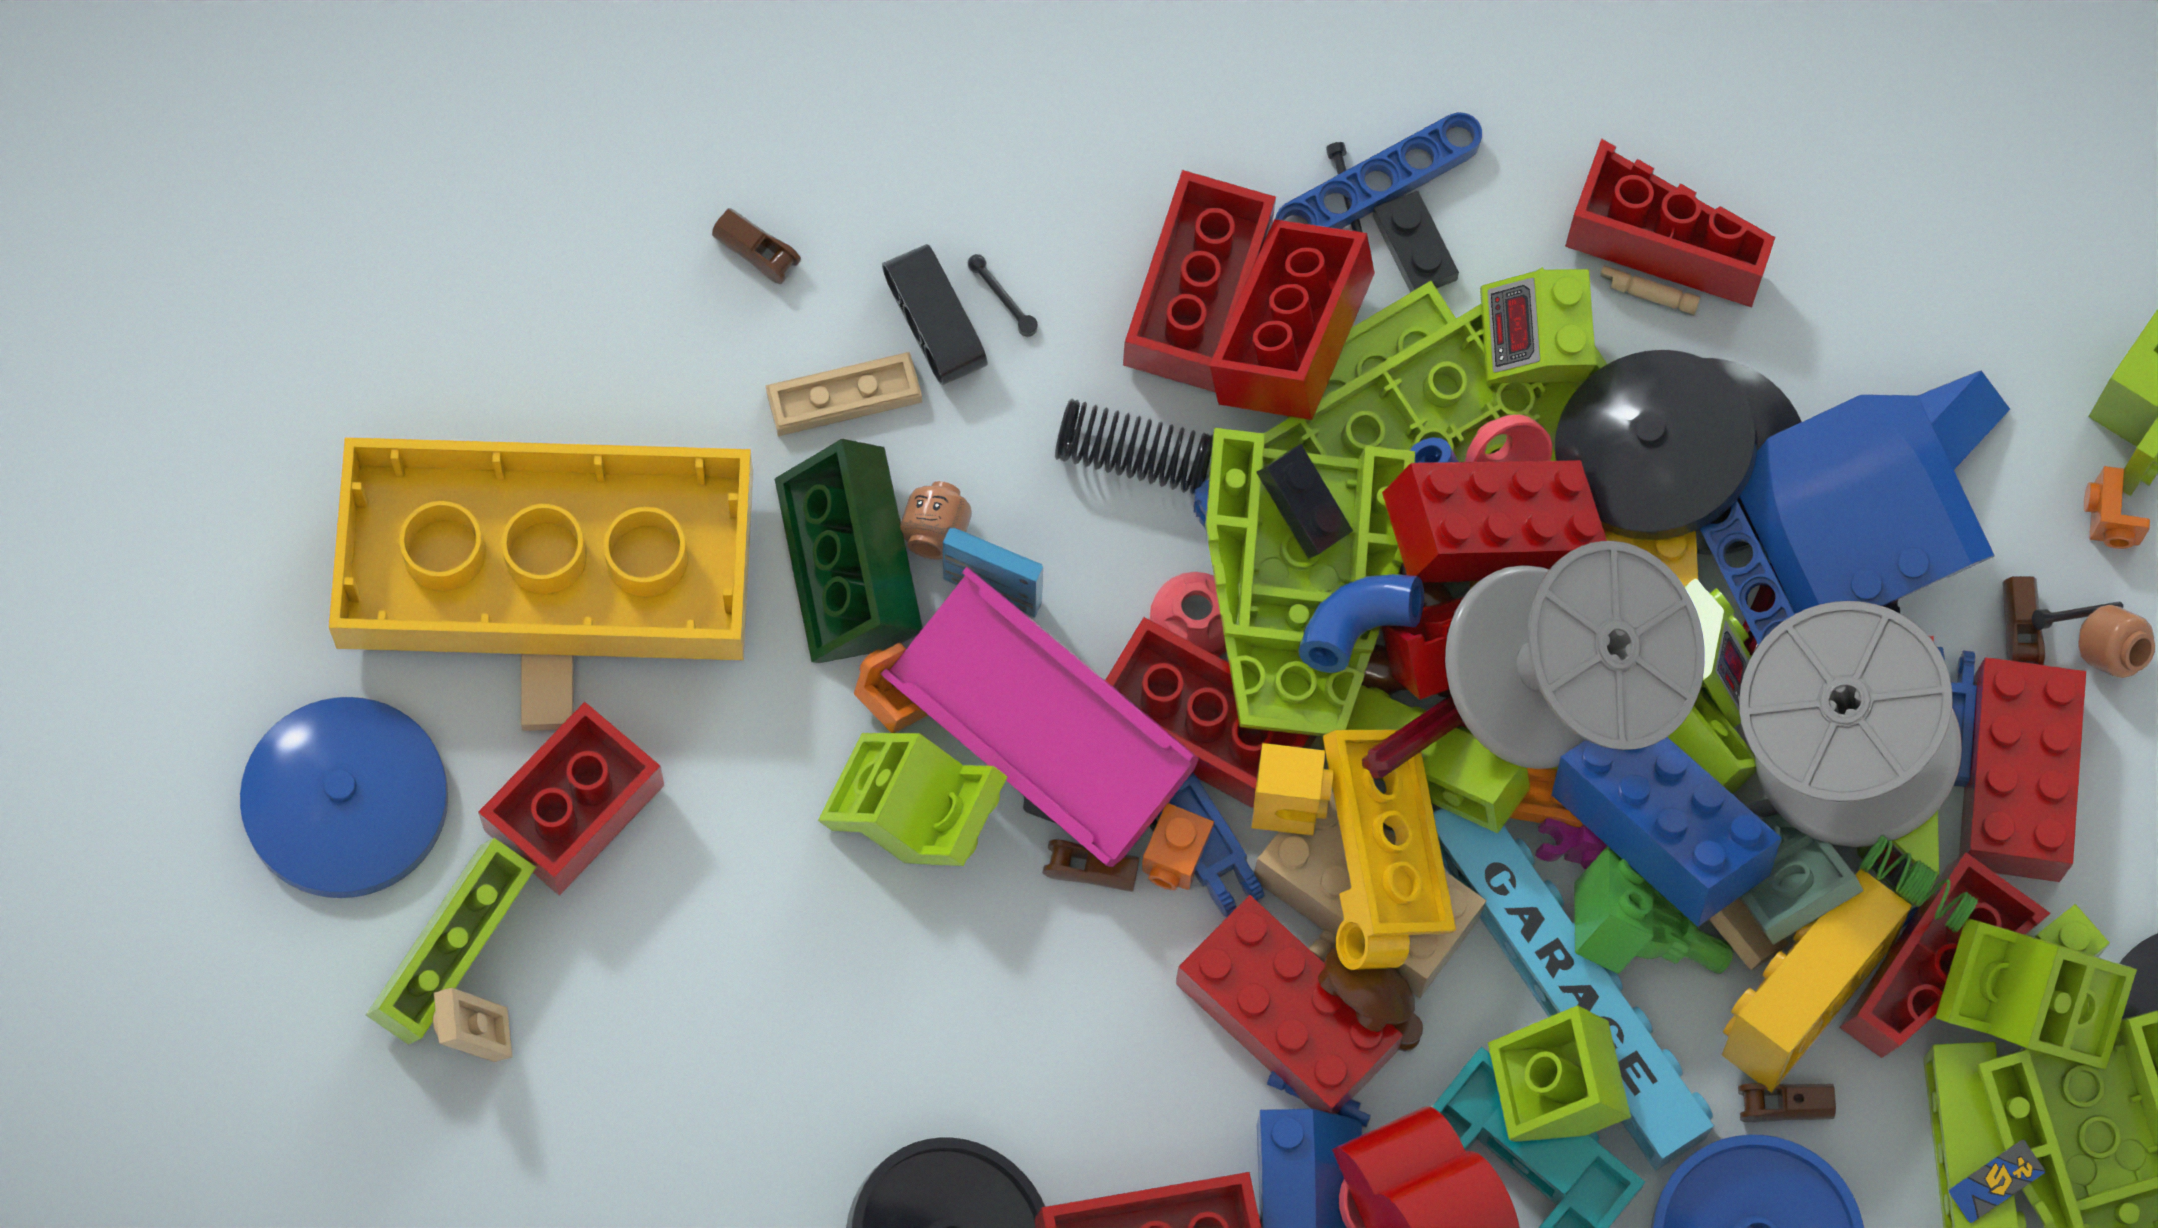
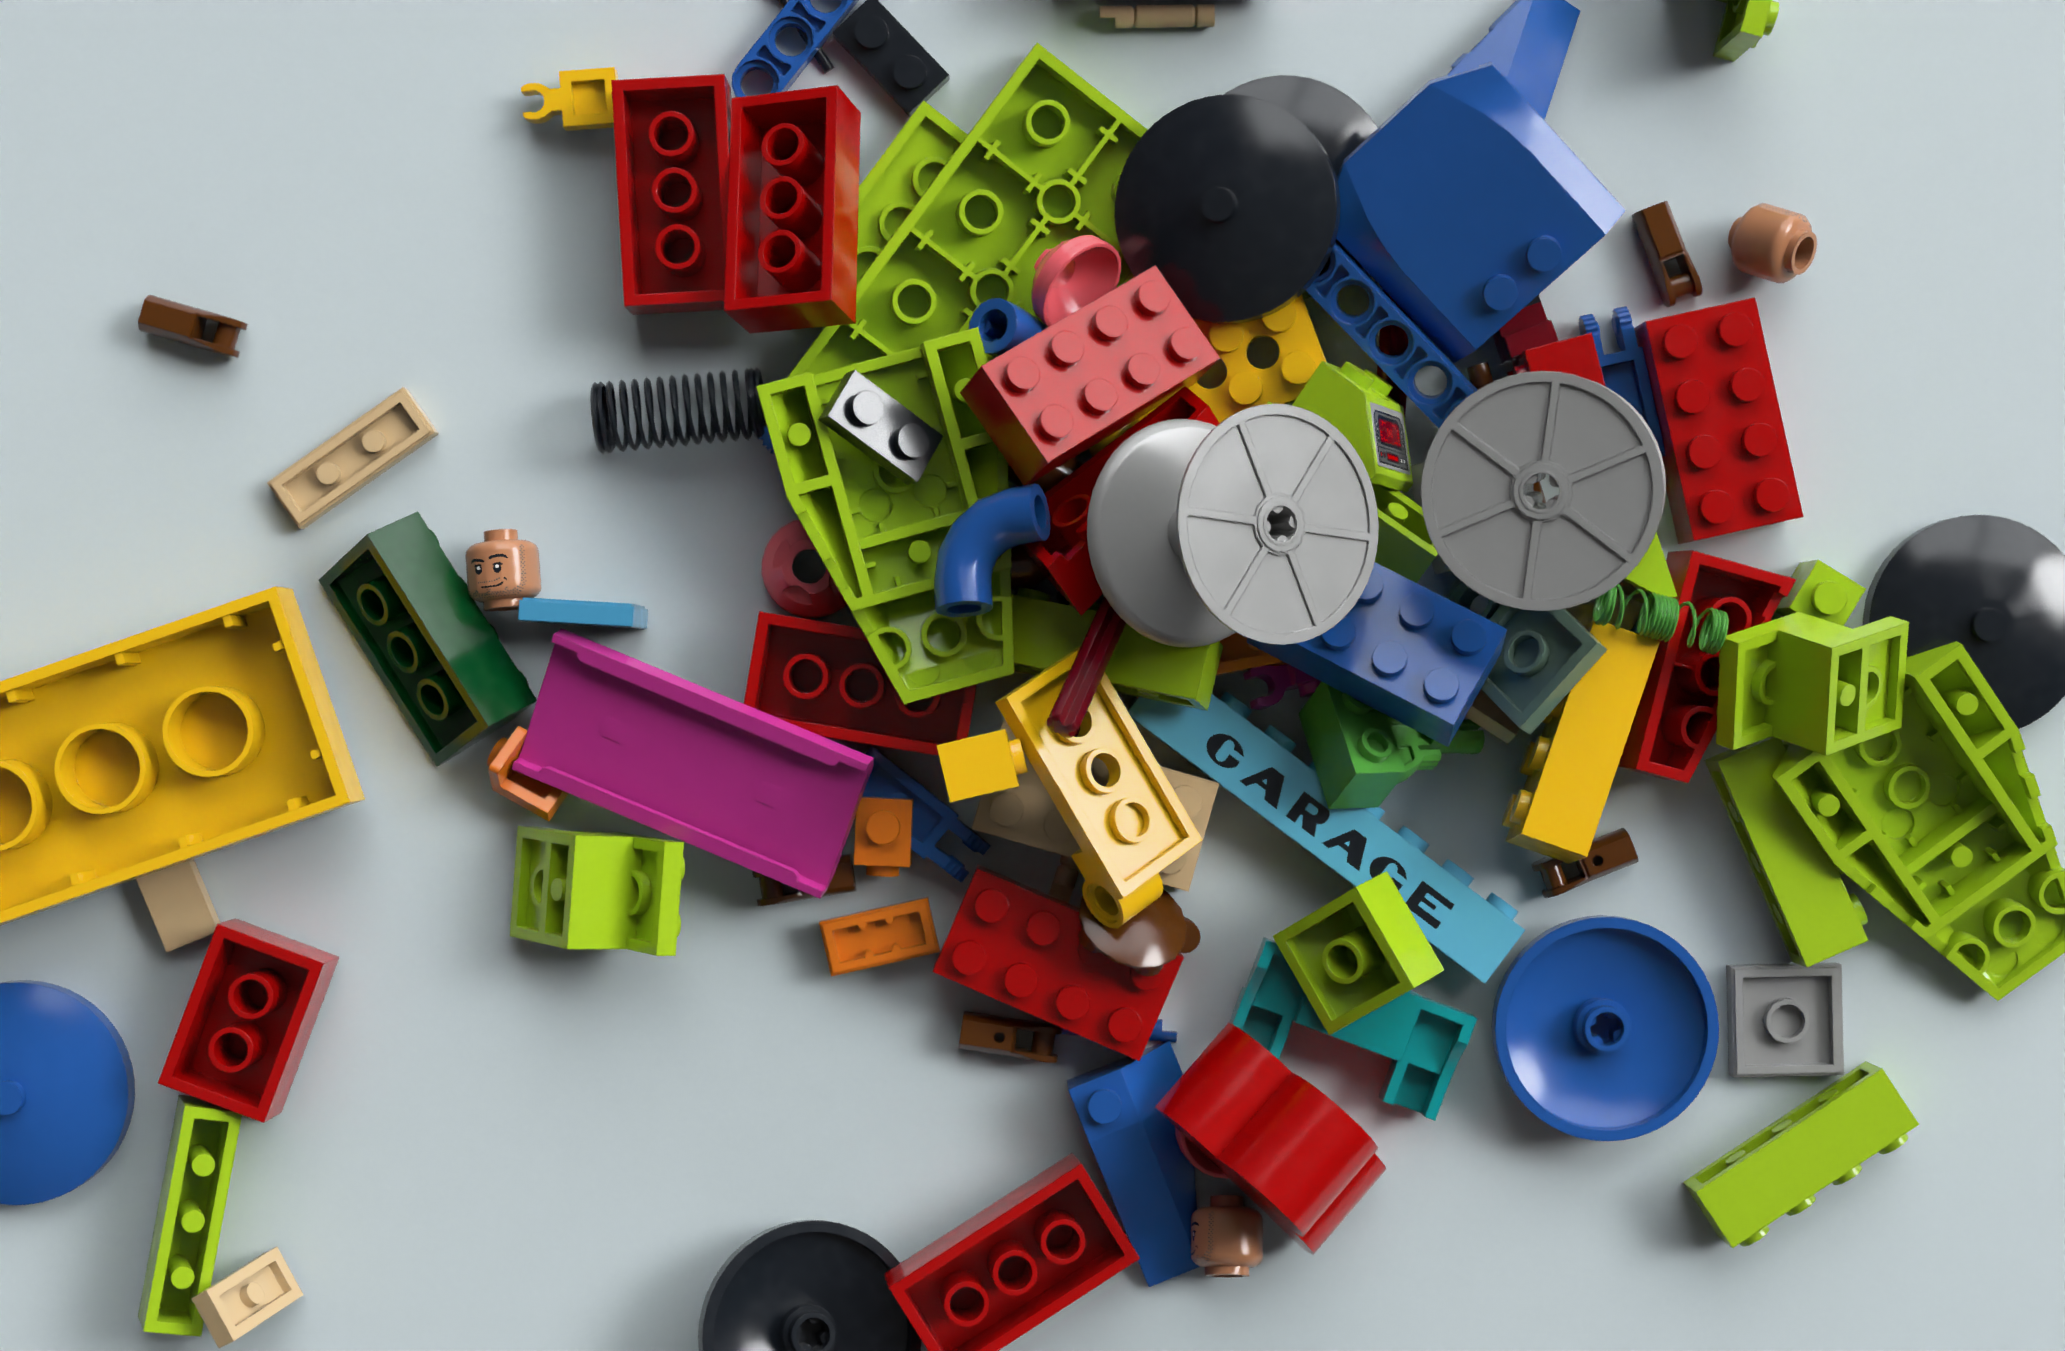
camera: 15 degrees left, 20 degrees up
(934, 314) = (411, 335): black beam -> none
(1026, 323) = (514, 305): black hinge -> none
(1138, 934) = (879, 936): none -> orange plate
(1147, 186) = (581, 99): none -> yellow plate
(1213, 1058) = (998, 1036): none -> reddish brown bar
(1538, 327) = (1057, 120): lime slope -> none
(1996, 1181) = (1826, 885): sticker -> none
(2044, 618) = (1691, 248): black piece -> none
(2105, 503) = (1713, 87): orange bracket -> none

